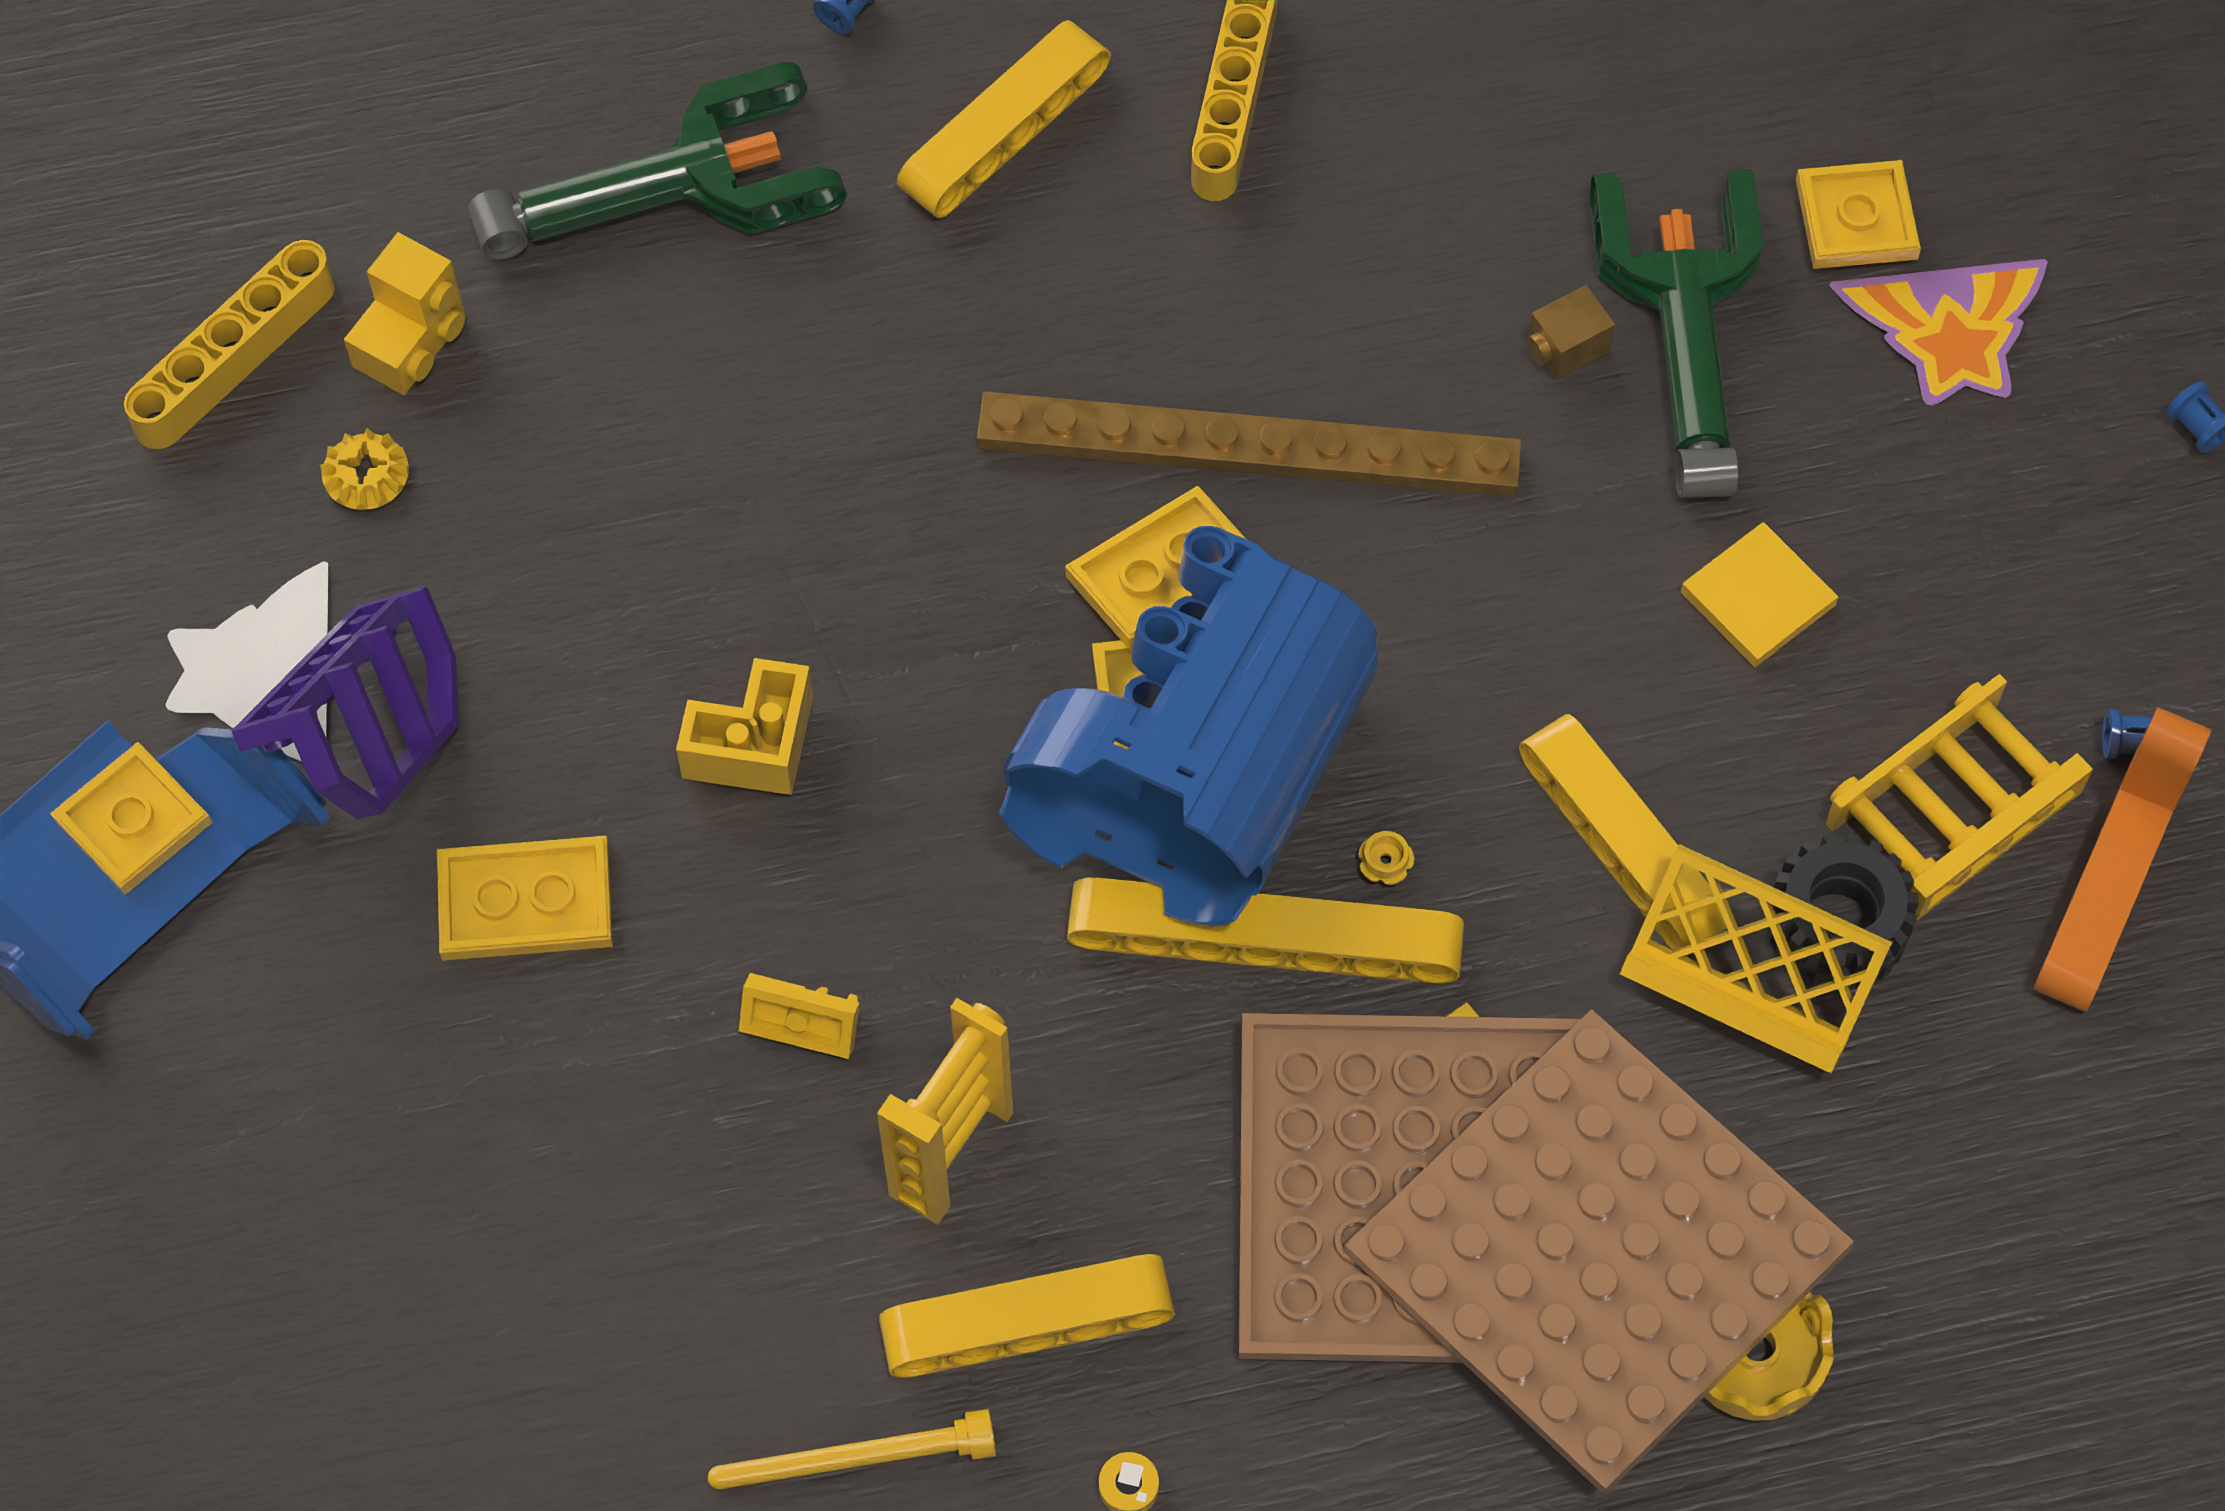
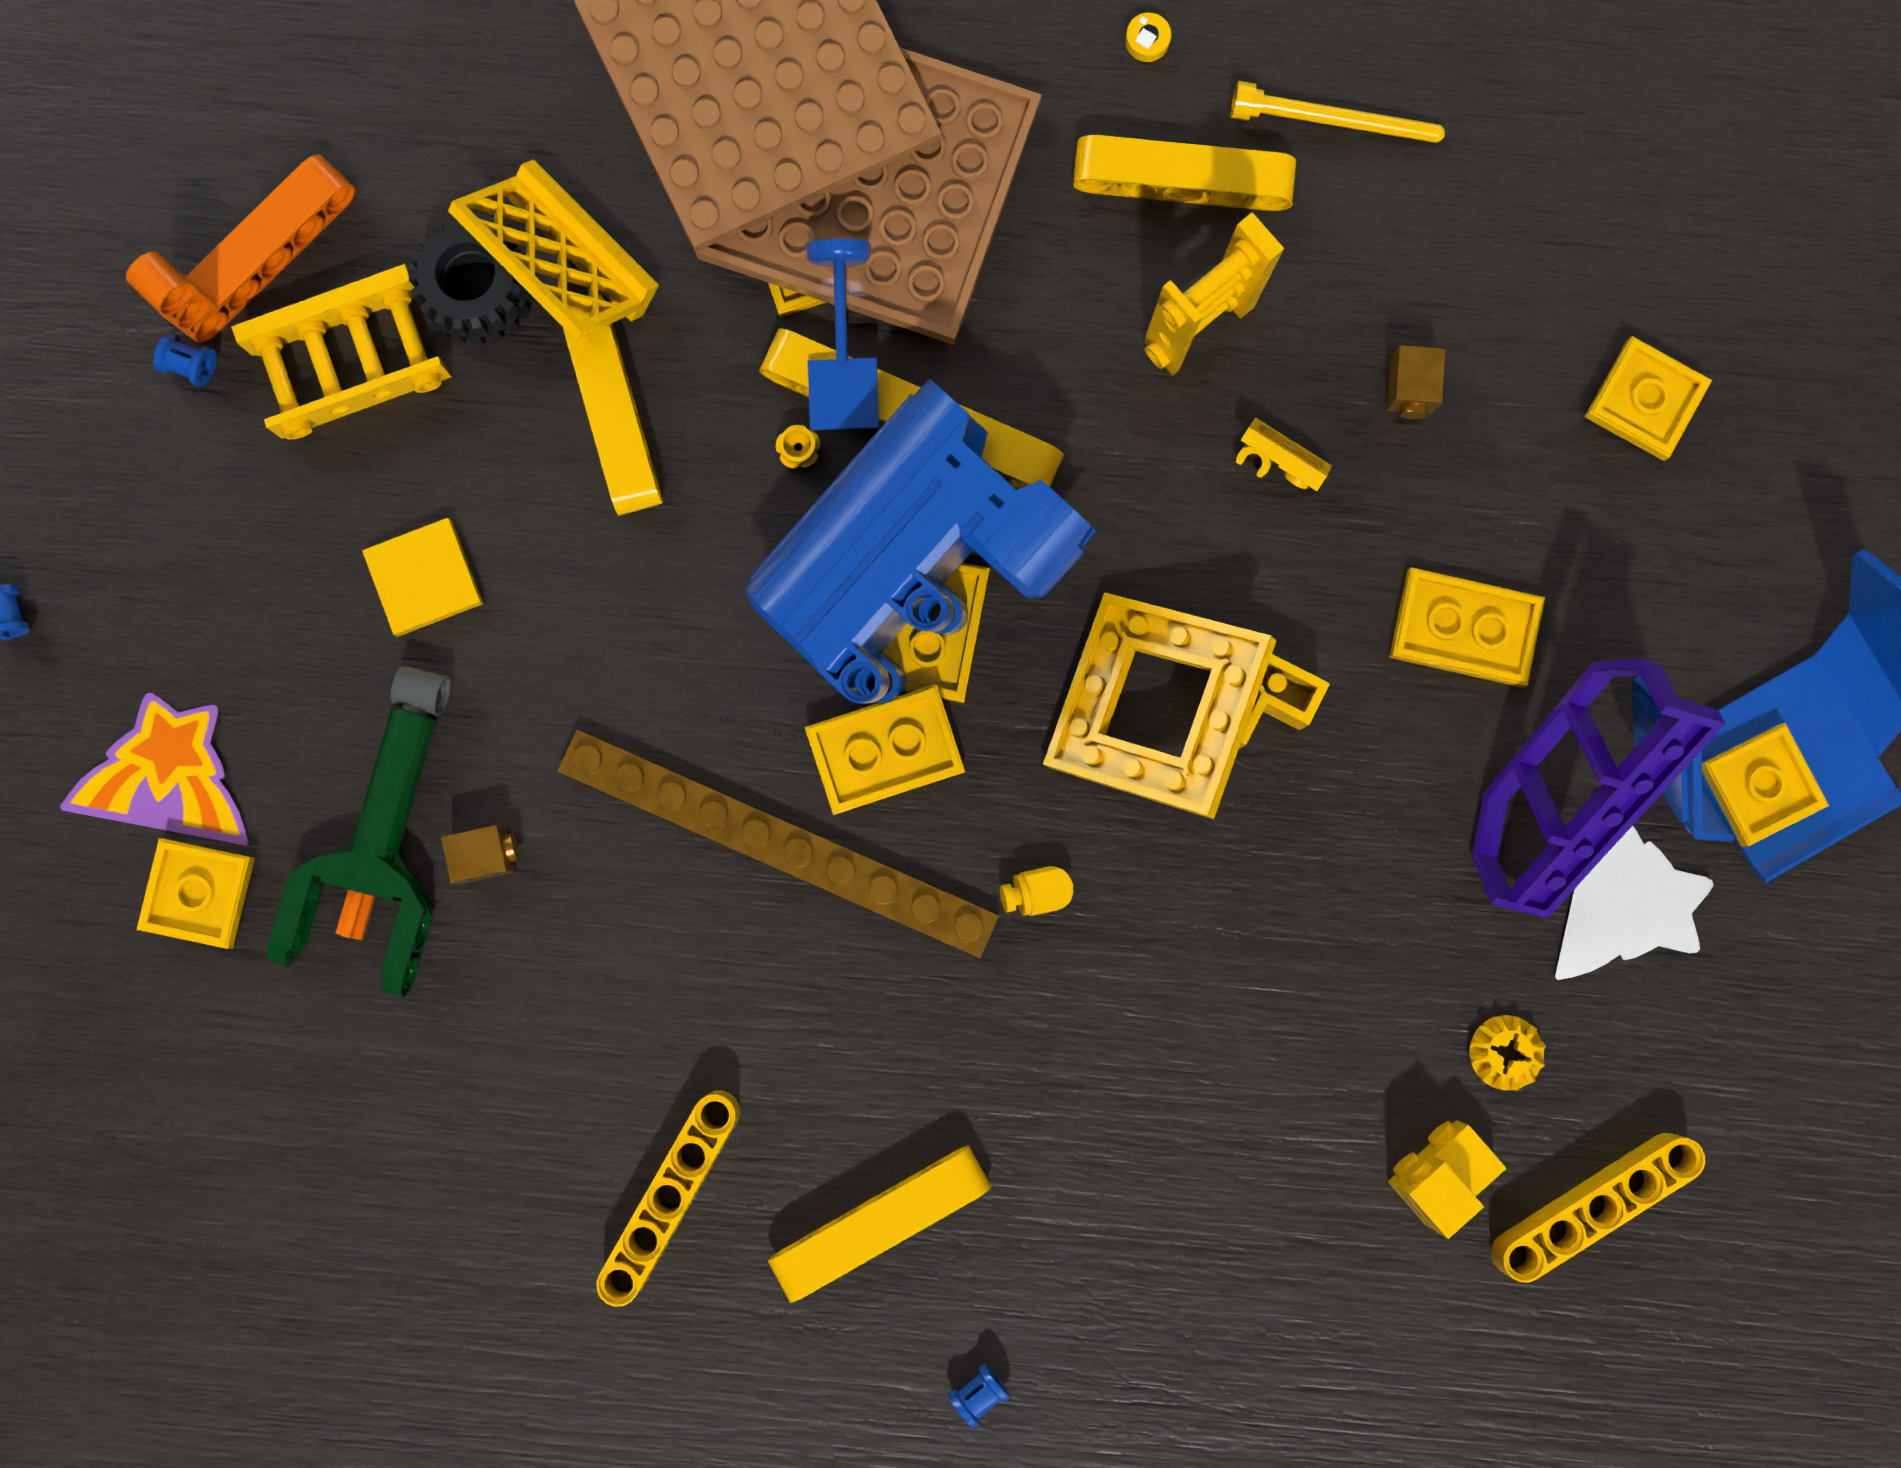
camera: 165 degrees left, 20 degrees up
(366, 1221) = (1648, 398): none -> yellow plate
(663, 1149) = (1415, 381): none -> pearl gold brick
(693, 168) = (1163, 1258): dark green piece -> none
(791, 730) = (1201, 774): none -> yellow plate
(941, 474) = (1037, 891): none -> yellow arm
(1357, 911) = (842, 389): none -> blue piece

